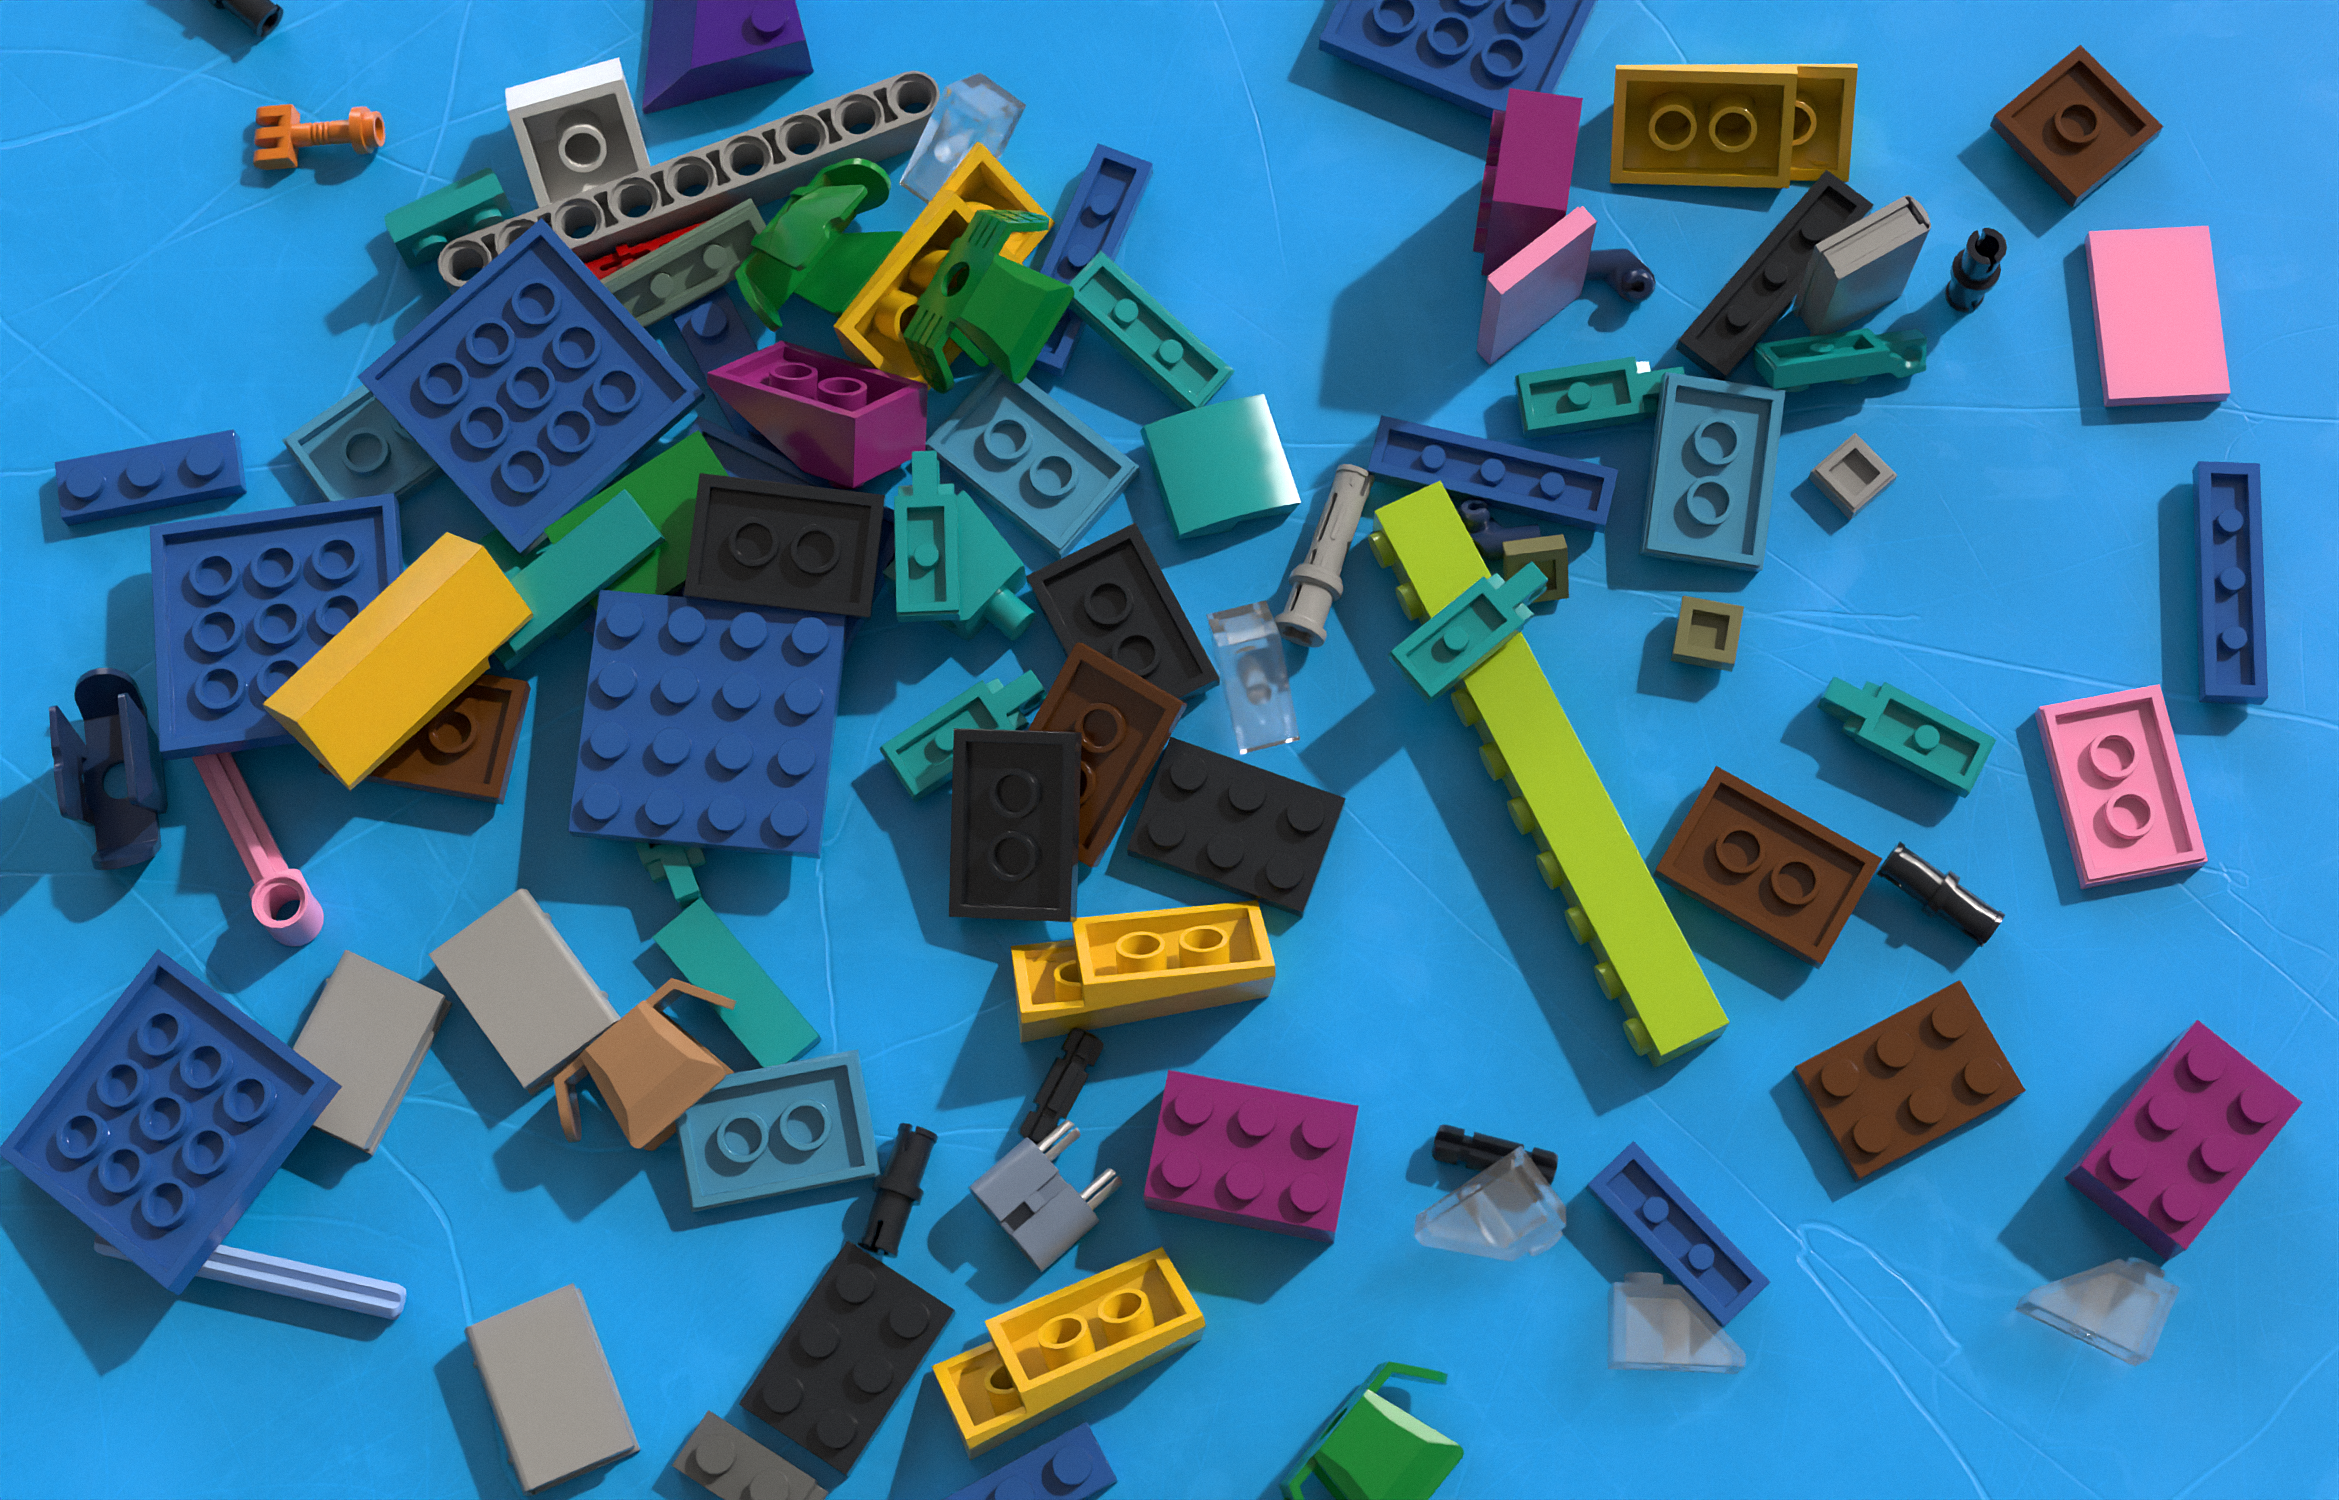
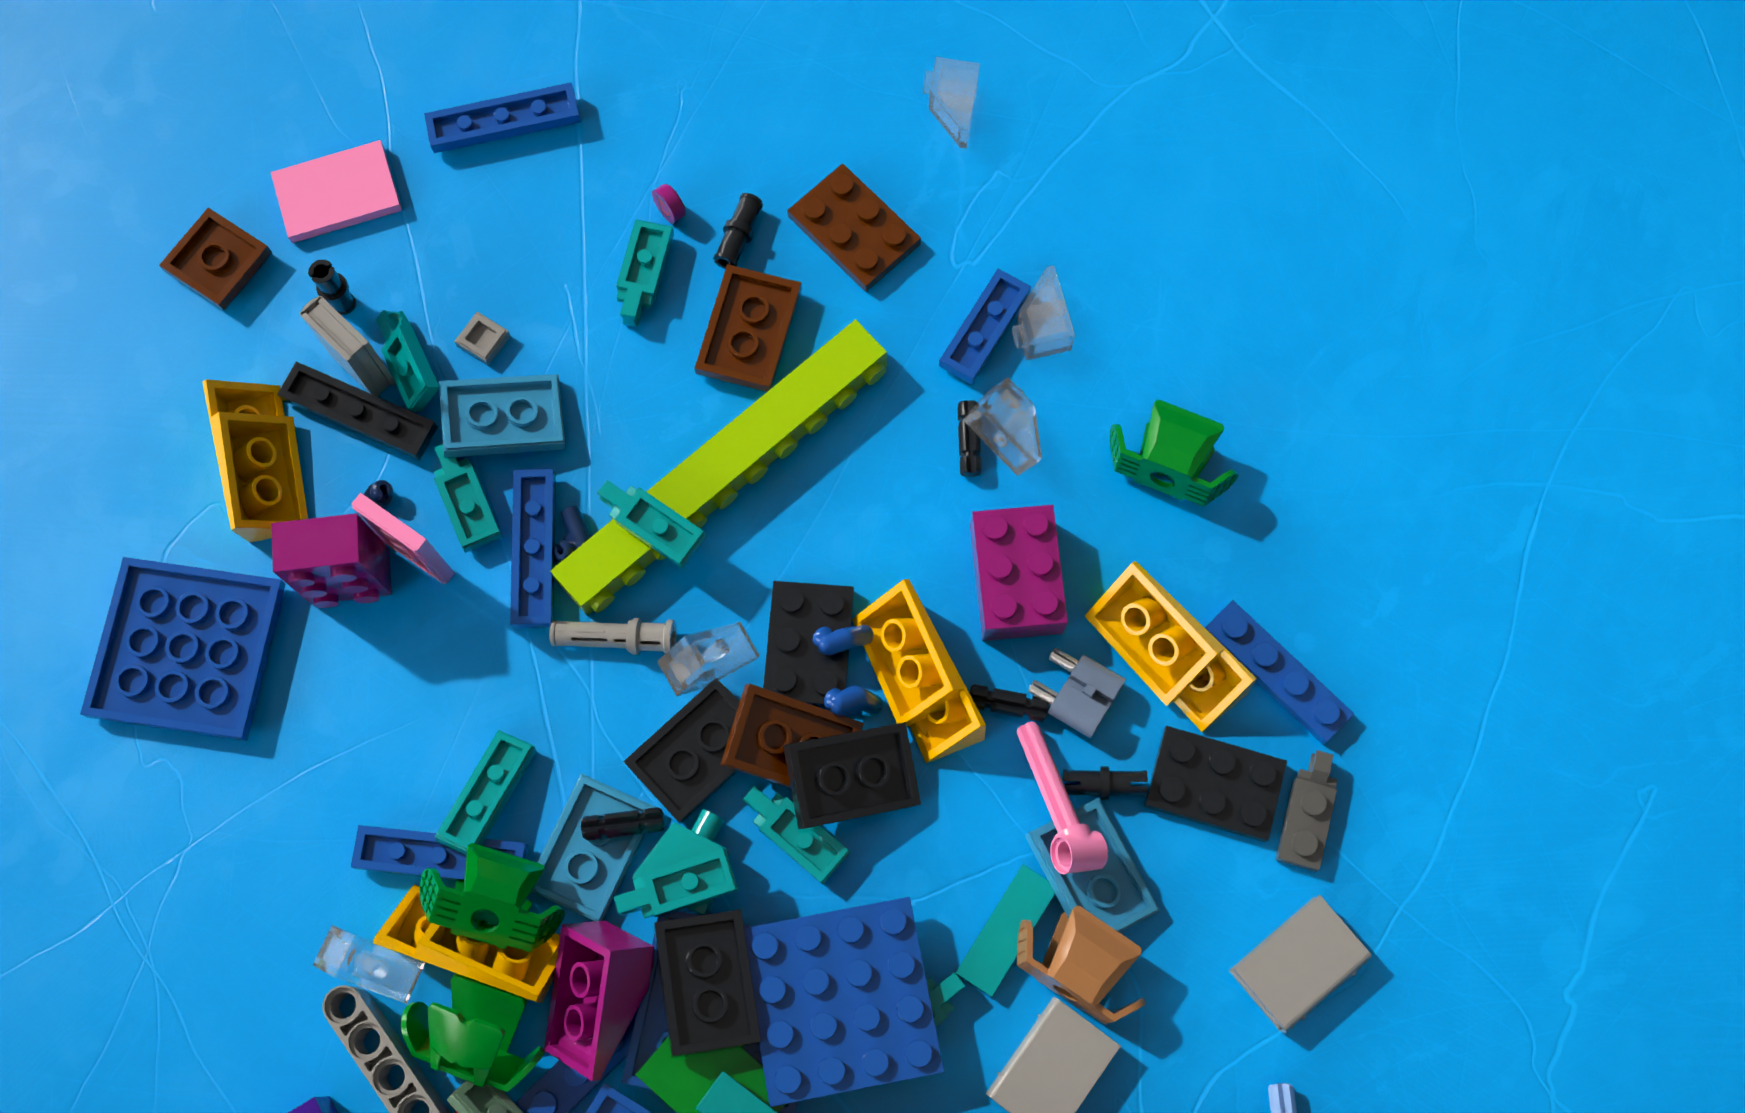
camera: 110 degrees left, 0 degrees up
(810, 1103) = (1075, 845): none -> bright pink axle
(1045, 500) = (622, 823): none -> black axle
(1125, 859) = (852, 700): none -> blue arm
(1219, 877) = (841, 639): none -> blue arm
(1220, 466) = (568, 720): teal slope -> none
(1548, 554) = (588, 505): olive plate -> none
(1707, 633) = (608, 395): olive plate -> none
(2014, 798) = (669, 203): none -> magenta tile
(2120, 786) = (643, 153): bright pink tile -> none
(2183, 1140) = (848, 76): magenta brick -> none

